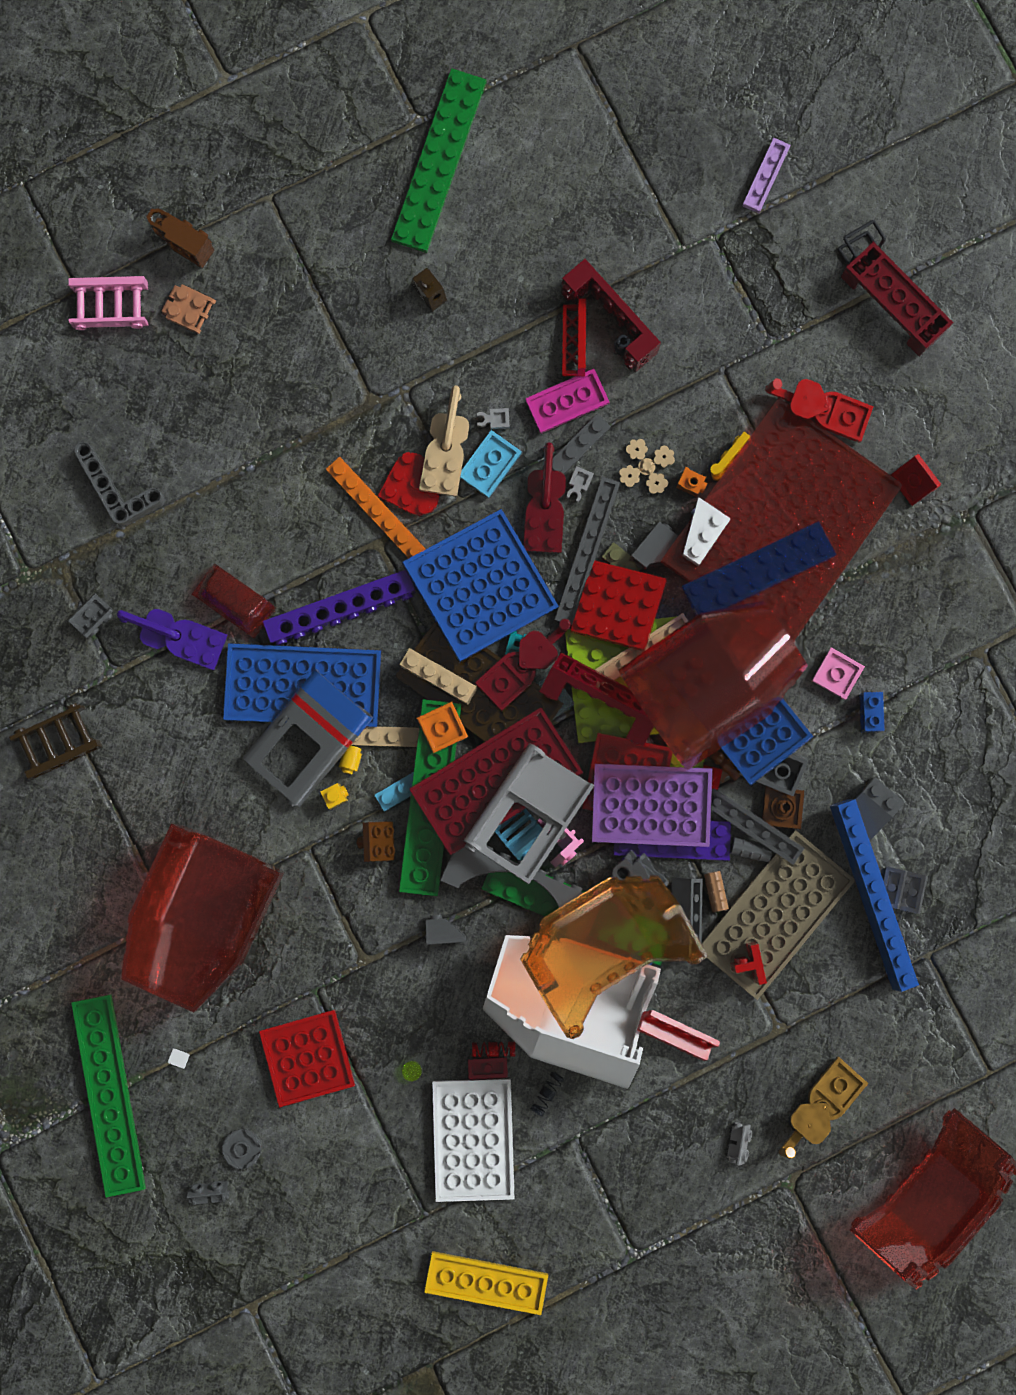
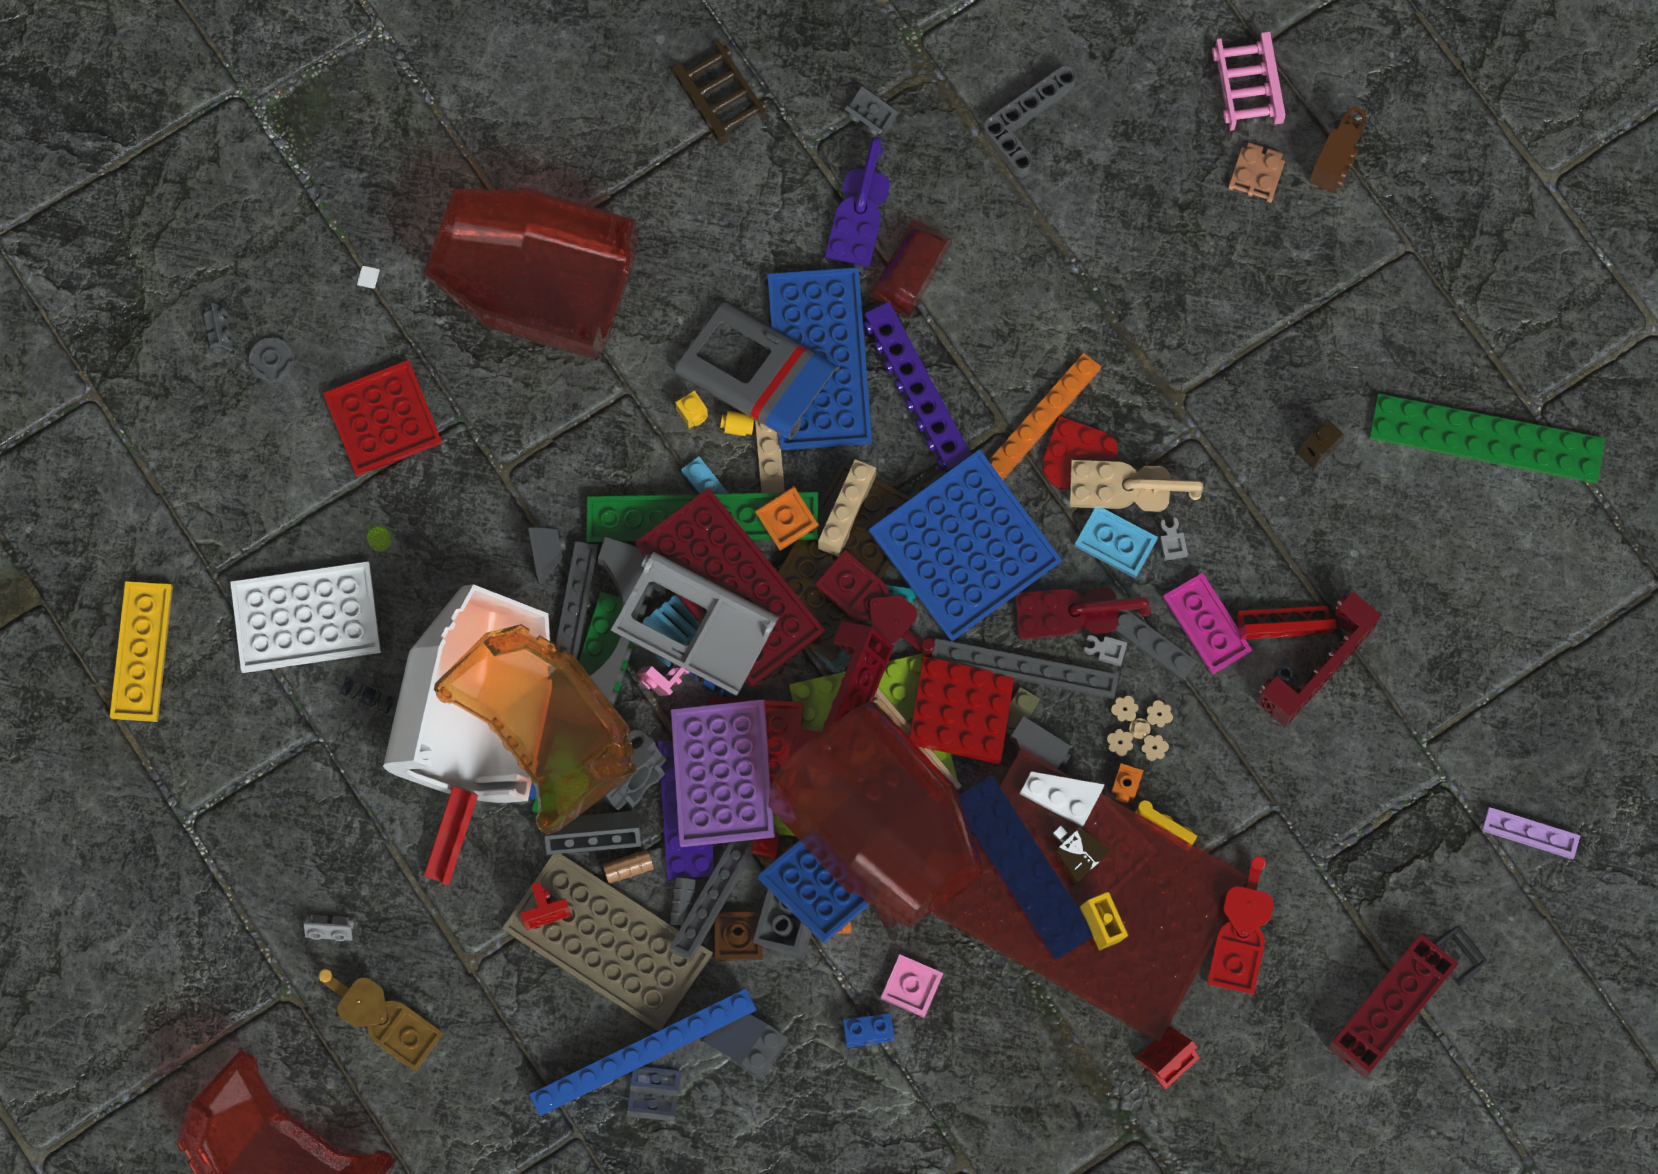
camera: 80 degrees right, 10 degrees down
(108, 1096) = (319, 204): green plate -> none
(377, 841) = (643, 464): reddish brown plate -> none
(487, 1068) = (390, 623): dark red plate -> none
(489, 911) = (576, 598): none -> dark grey plate
(493, 1049) = (414, 626): red piece -> none
(753, 525) = (1078, 852): none -> dark brown torso
(811, 512) = (1103, 921): none -> yellow brick

